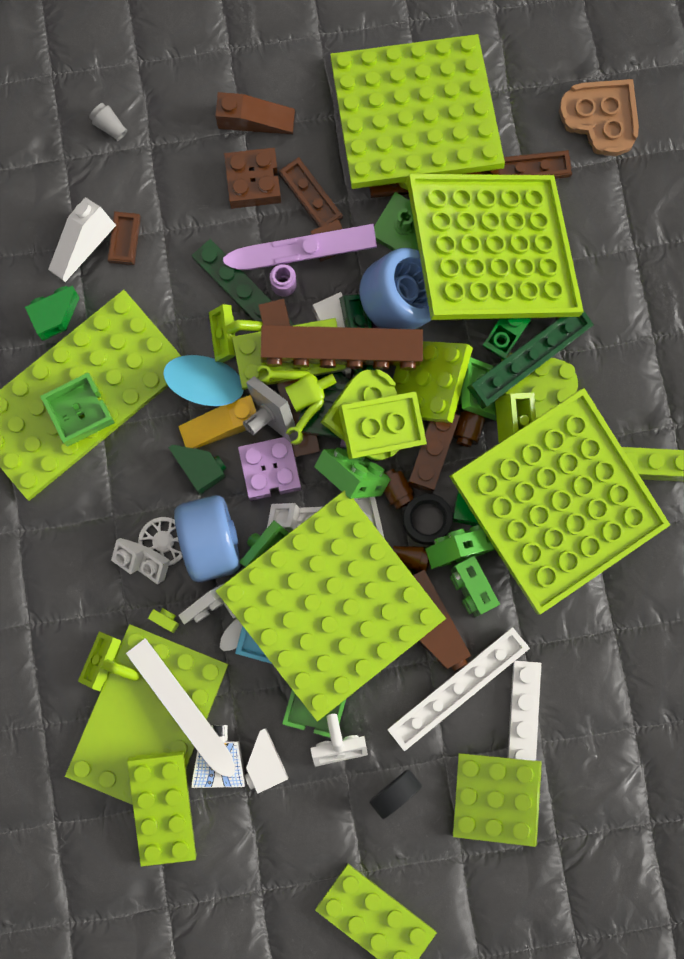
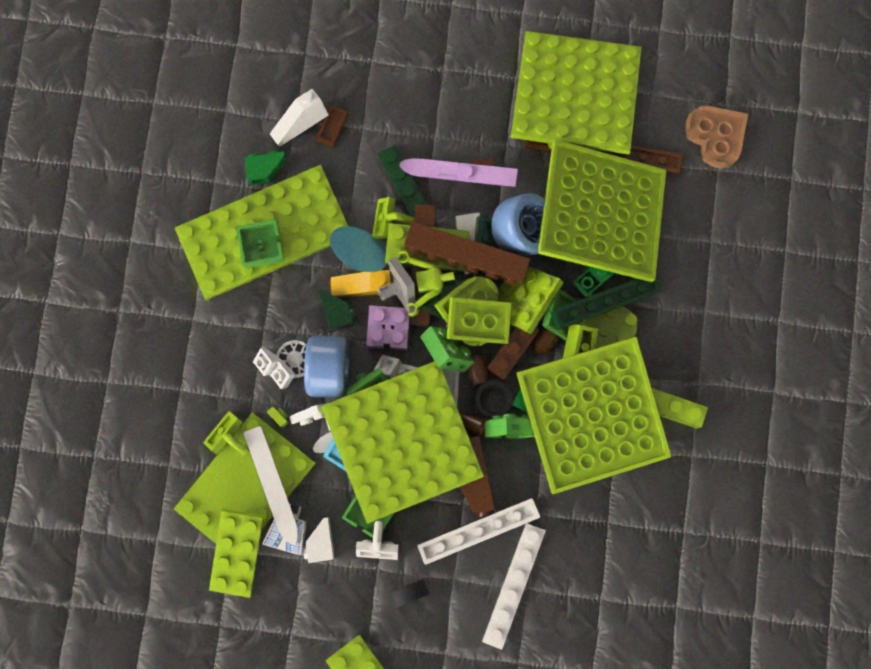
camera: 20 degrees right, 0 degrees up
(107, 121) = (345, 36): light grey cone -> none
(252, 187) = (446, 117): reddish brown piece -> none
(253, 114) = (455, 61): reddish brown slope -> none
(283, 273) = (442, 186): lavender brick -> none
(309, 193) = (479, 131): reddish brown tile -> none
(396, 225) = (535, 174): bright green tile -> none
(475, 587) = (511, 460): bright green piece -> none
(497, 799) = (482, 620): lime plate -> none

